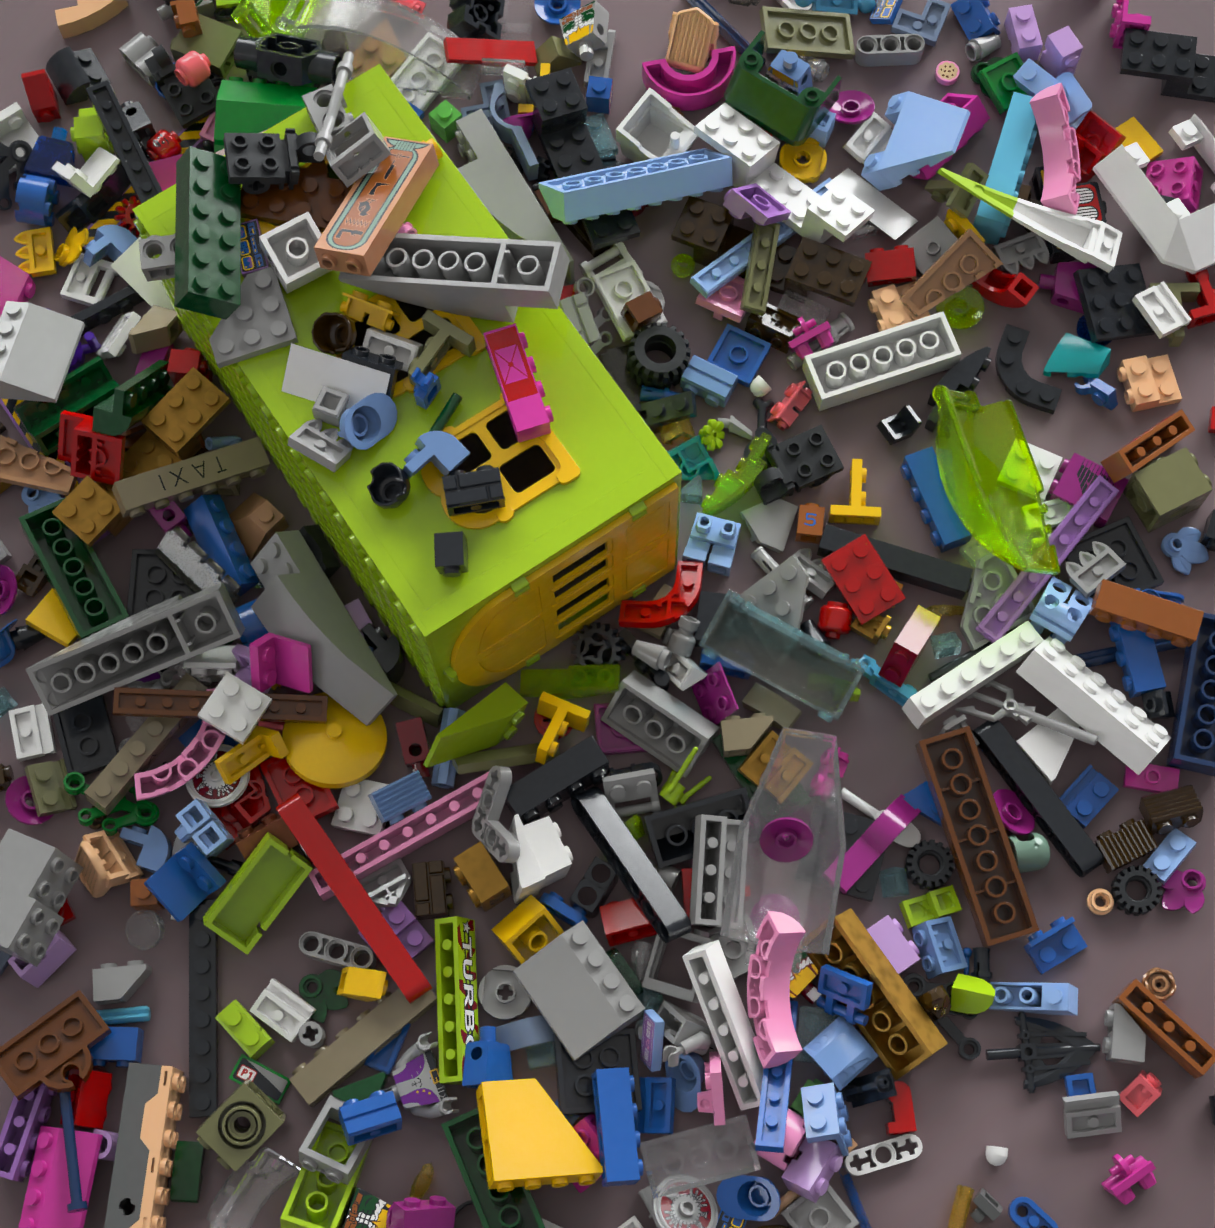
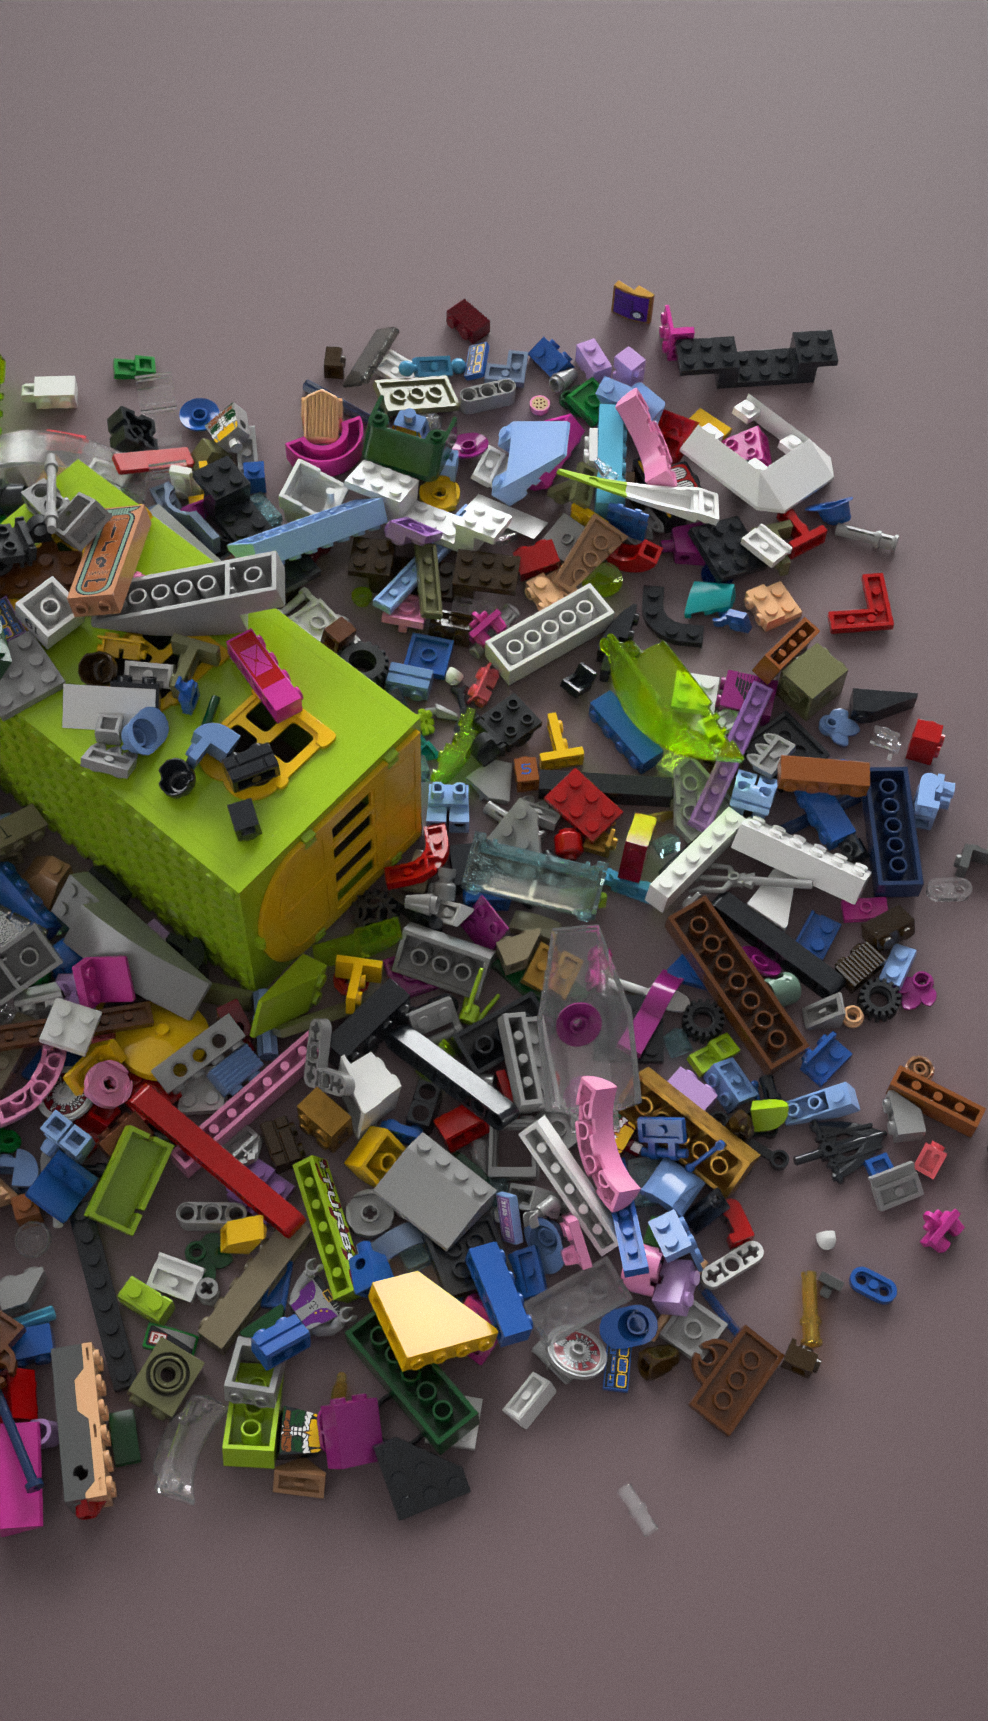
camera: 20 degrees left, 10 degrees down
(246, 781) = (95, 1087): none -> bright pink plate
(323, 782) = (224, 1027): none -> light grey brick
(903, 1025) = (719, 1145): none -> blue hinge
(989, 146) = (591, 447): none -> white plate
(997, 177) = (605, 470): none -> clear bar
(1007, 244) = (632, 527): none -> blue plate
(1069, 891) = (825, 1013): none -> light grey slope

